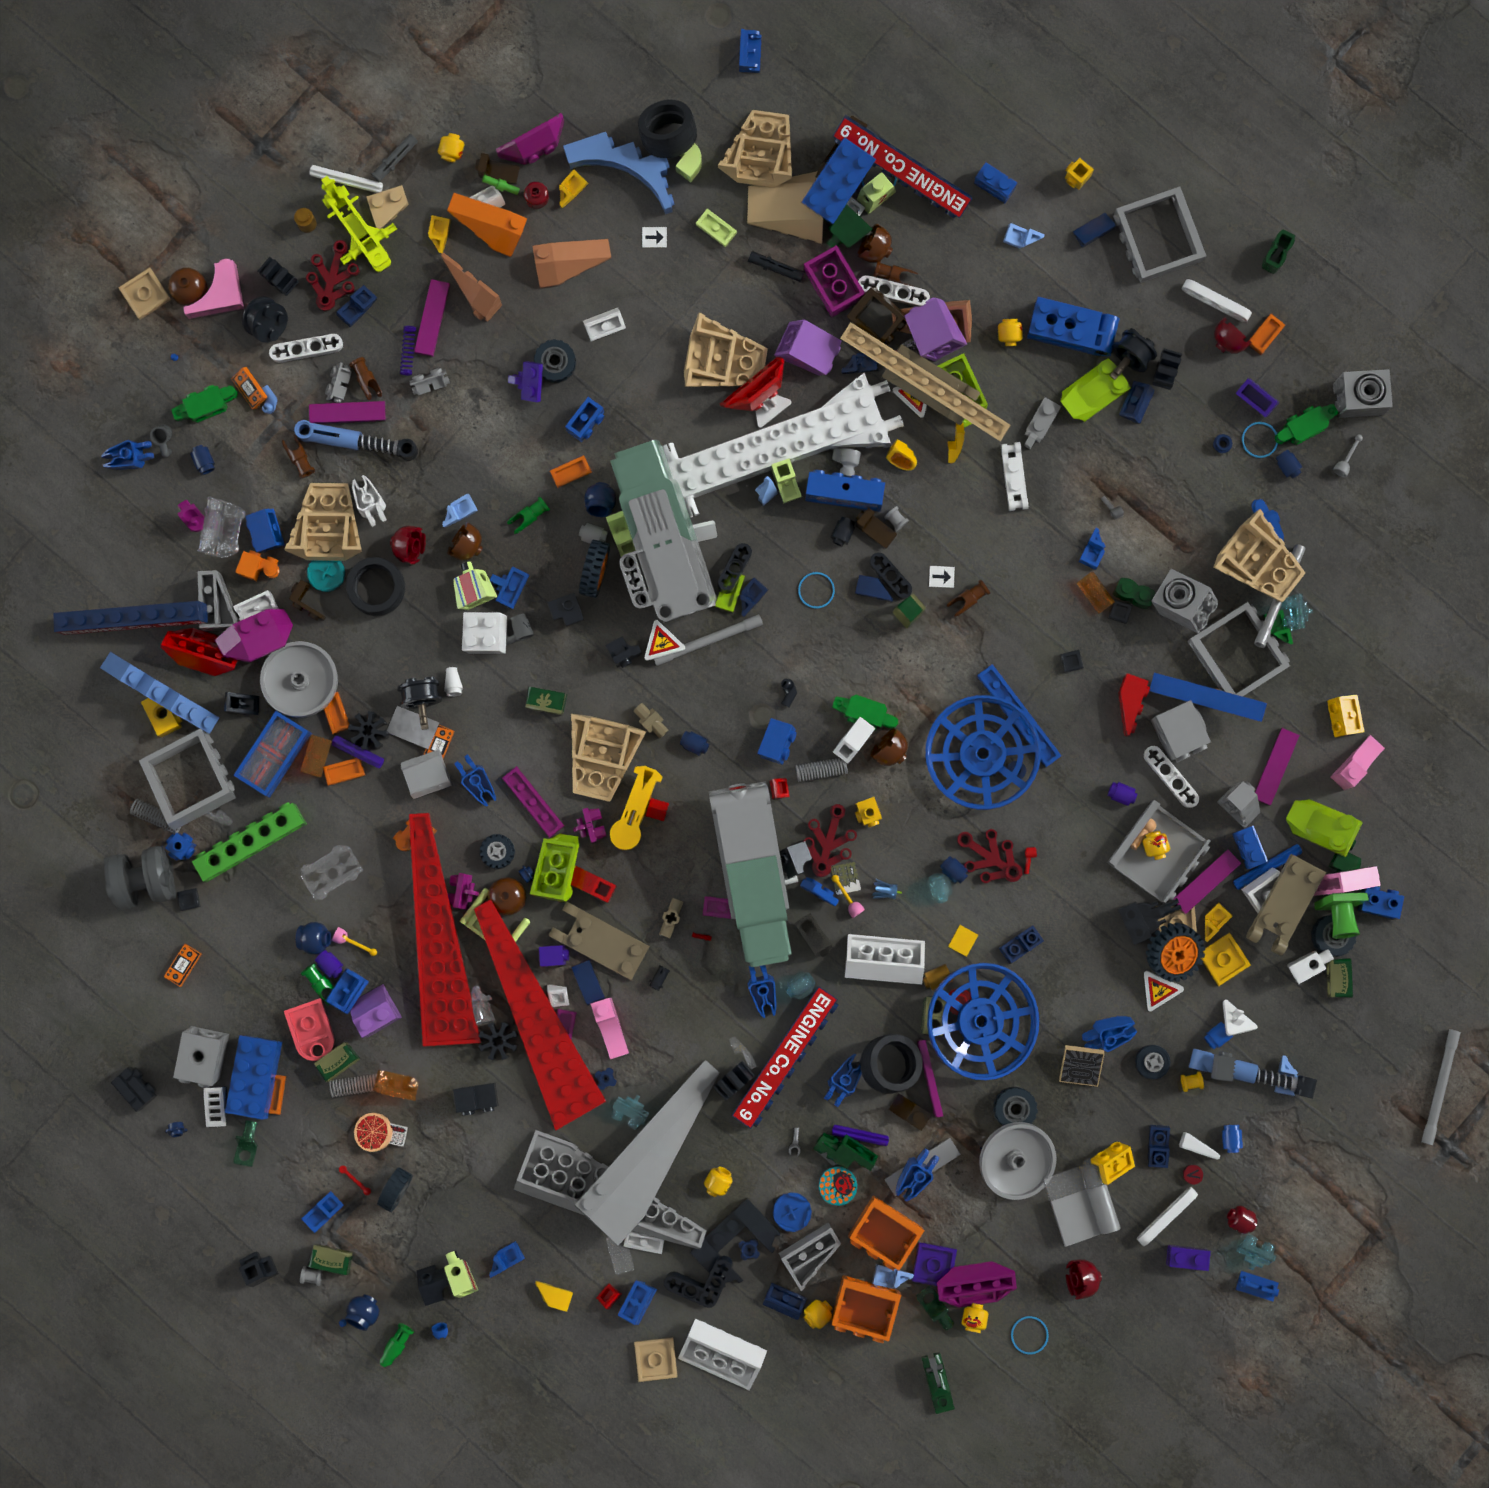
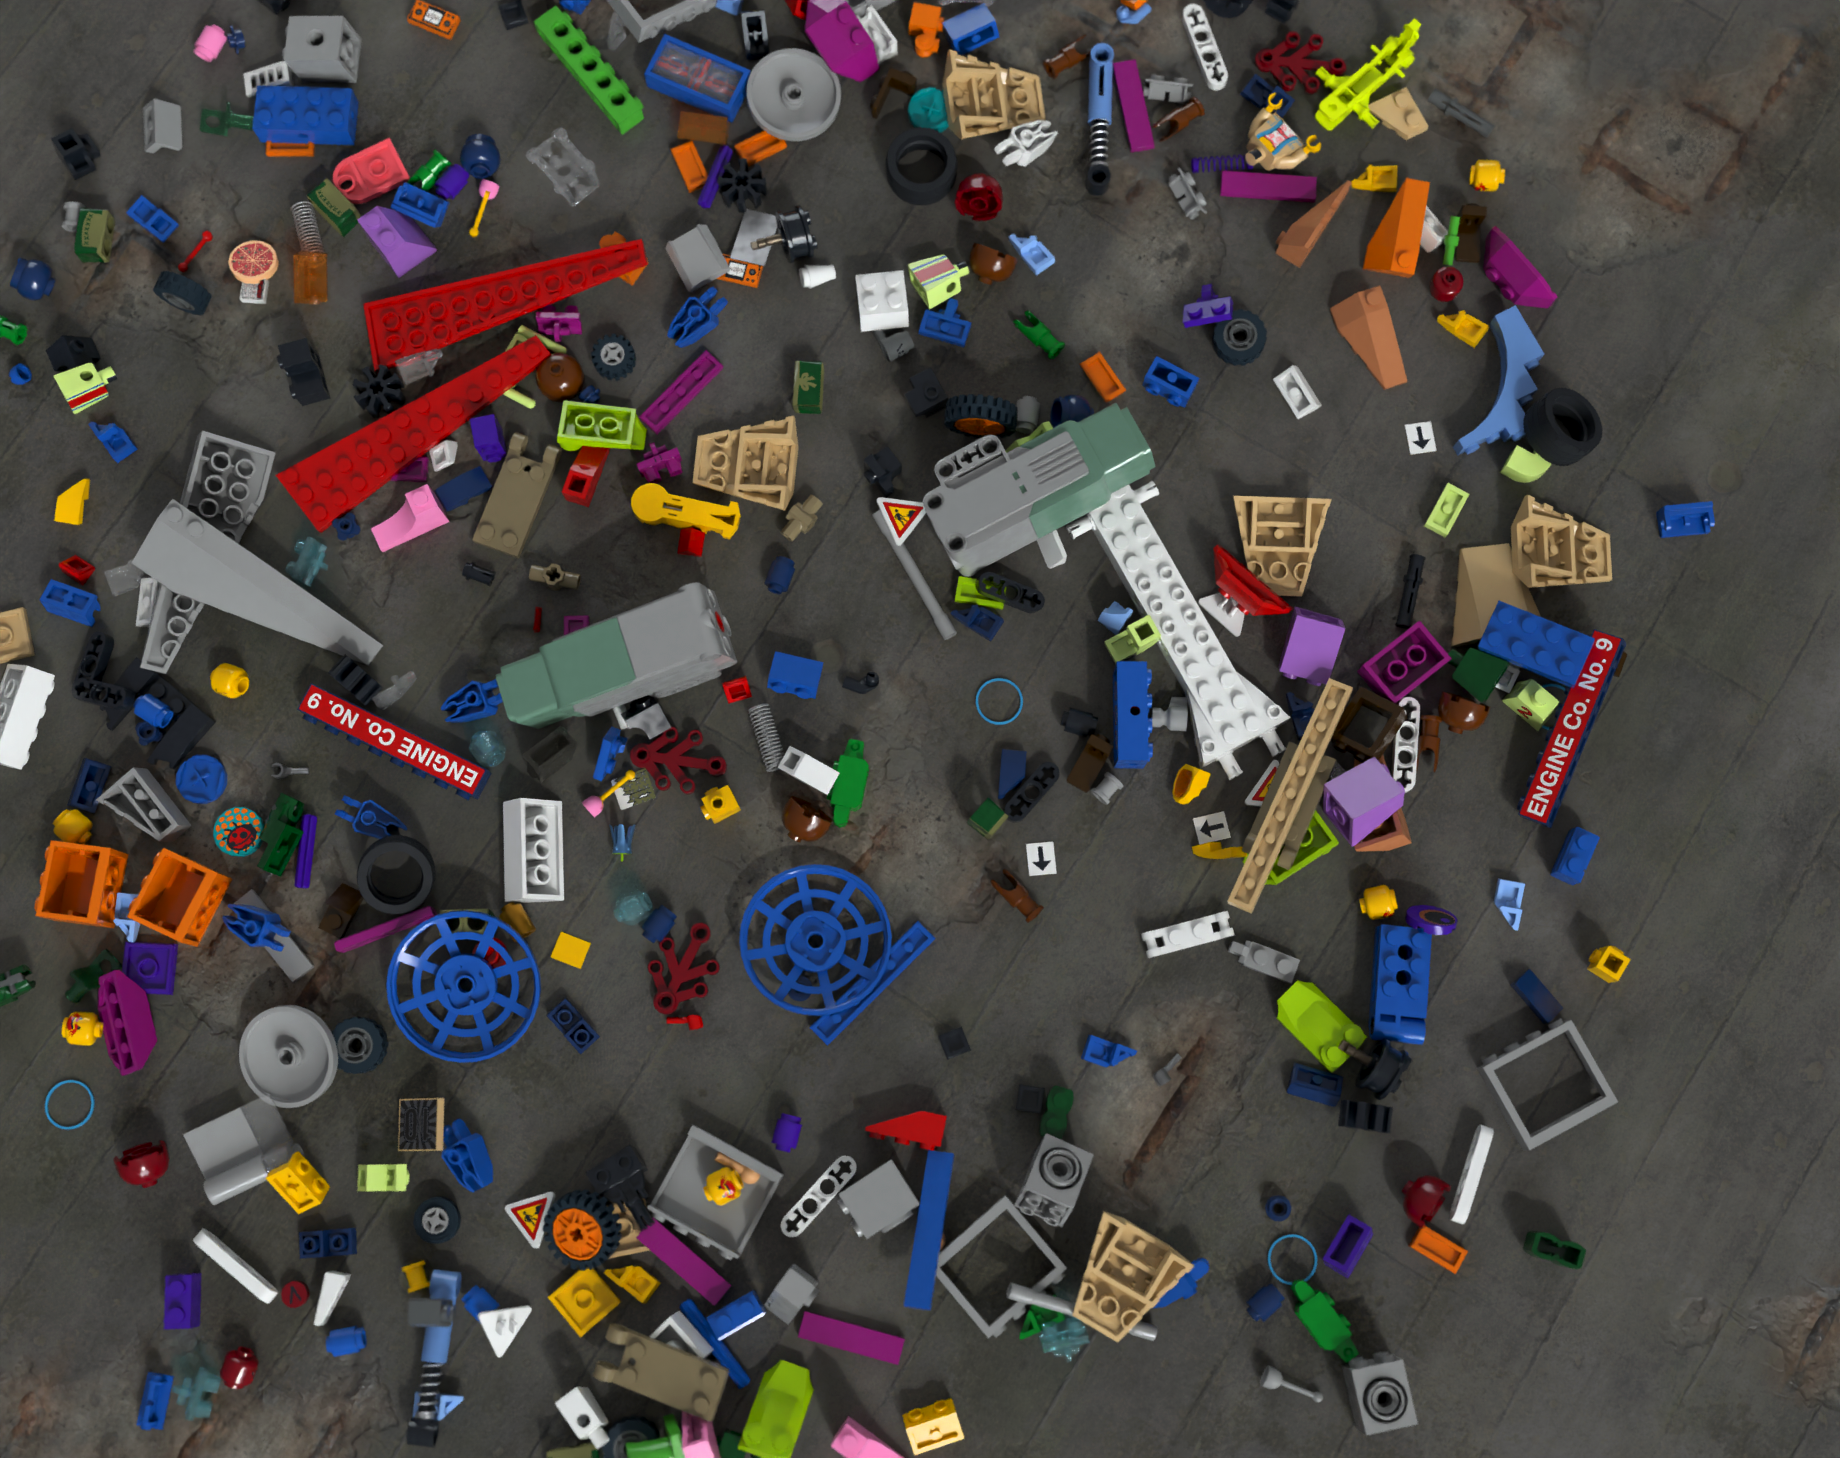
camera: 80 degrees right, 5 degrees down
(176, 1151) = (210, 43): none -> bright pink brick
(242, 1198) = (162, 126): none -> light grey panel
(305, 220) = (1362, 20): pearl gold brick -> none
(346, 179) = (1423, 61): white axle -> none
(399, 306) = (1274, 142): none -> torso
(735, 1242) = (153, 710): none -> blue brick
(935, 446) = (1211, 827): none -> white sticker
(1028, 295) = (1432, 919): none -> dark purple tile
(1095, 592) = (1049, 1061): clear orange plate -> none
(1117, 1097) = (382, 1177): none -> yellowish green brick

